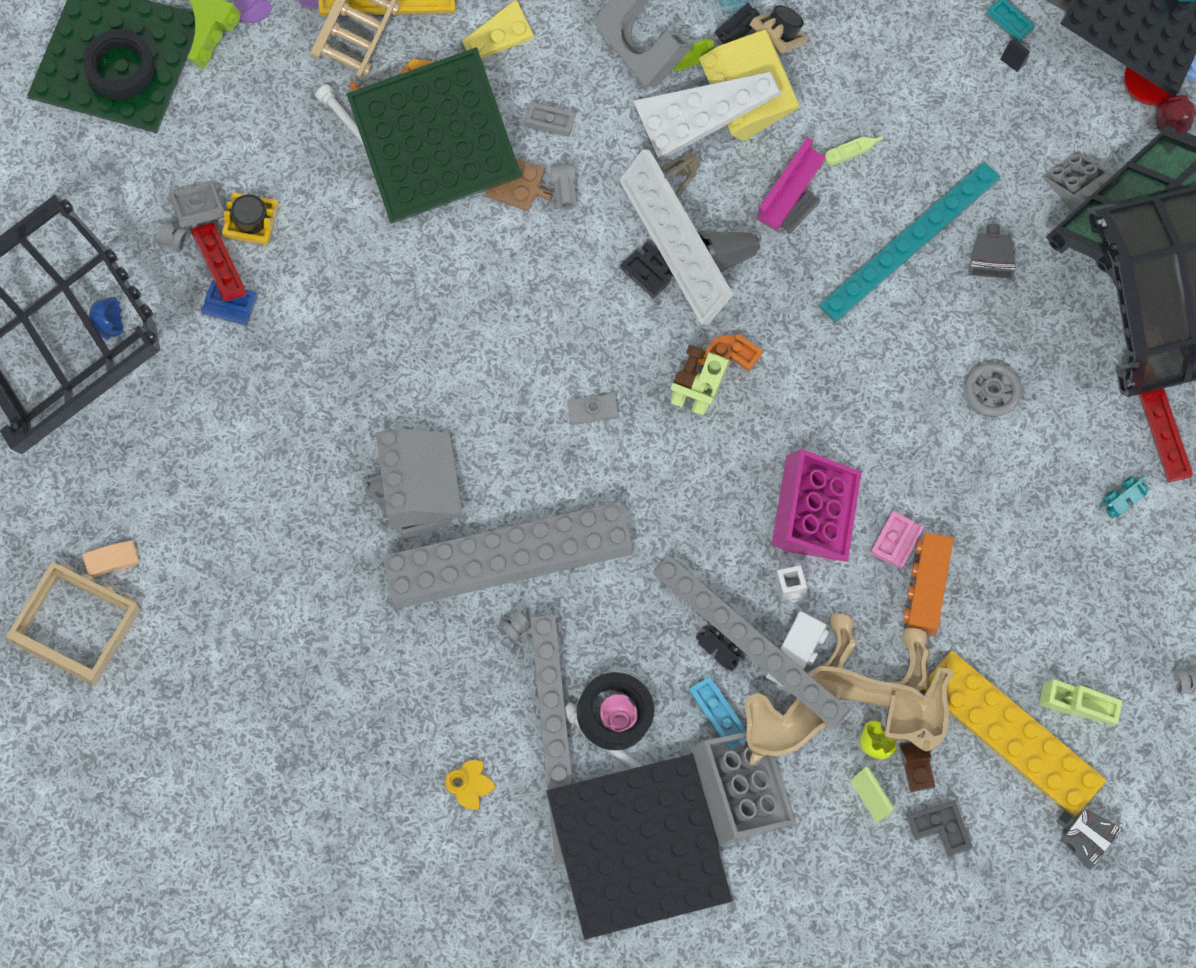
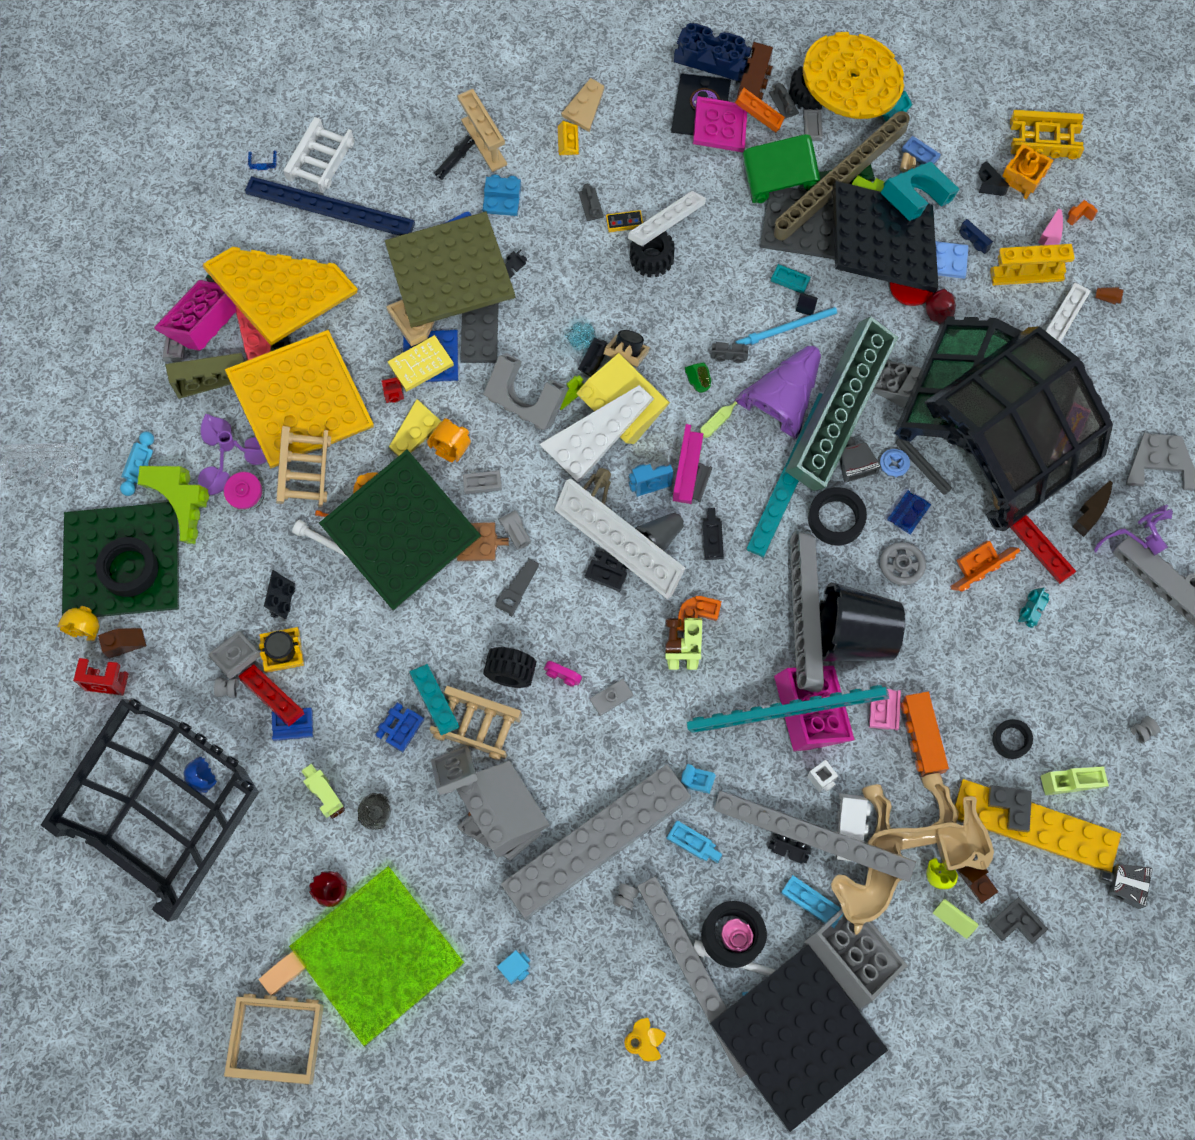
camera: 20 degrees left, 0 degrees up
(43, 181) = (101, 684): none -> red panel
(44, 106) = (79, 623): none -> yellow cylinder
(81, 144) = (121, 641): none -> reddish brown slope
(195, 489) = (328, 888): none -> dark red hair
(218, 580) = (376, 956): none -> clear neon green plate
(231, 378) = (319, 786): none -> yellowish green hips
(271, 158) = (279, 595): none -> black hinge
(278, 428) = (374, 811): none -> clear smoke hair
(280, 31) = (244, 491): none -> dark pink piece
(349, 355) = (404, 729): none -> blue plate
(361, 651) = (515, 967): none -> medium azure brick
(382, 417) = (454, 770): none -> light grey plate
(394, 335) = (434, 699): none -> teal plate
(435, 355) = (491, 710): none -> tan fence
(491, 330) = (509, 667): none -> black tyre
(531, 58) = (449, 440): none -> light orange brick
(540, 251) = (518, 587): none -> dark grey piece
(543, 355) = (555, 670): none -> dark pink plate
(615, 599) = (693, 842): none -> medium azure hinge
(649, 533) = (697, 779): none -> medium azure bracket
(740, 187) = (645, 480): none -> dark azure plate
(786, 276) = (712, 536): none -> black hinge
(789, 494) = (795, 707): none -> teal plate
(850, 92) = (699, 377): none -> green rock
(853, 398) = (806, 612): none -> light grey beam
(889, 73) = (738, 353): none -> dark grey hinge
(905, 434) = (860, 625): none -> black cone
(936, 72) = (754, 338): none -> medium azure bar
(946, 144) = (785, 390): none -> medium lavender cone
(951, 284) = (841, 495): none -> black tyre
(1000, 699) = (1018, 805): none -> dark grey plate
(1002, 182) = (841, 404): none -> sand green brick
(1020, 645) = (1023, 728): none -> black tyre
(1028, 335) = (909, 512): none -> clear blue plate
(1042, 266) = (895, 455): none -> light blue gear
(1070, 291) = (924, 466): none -> dark grey axle
(1082, 421) = (980, 562): none -> orange bracket

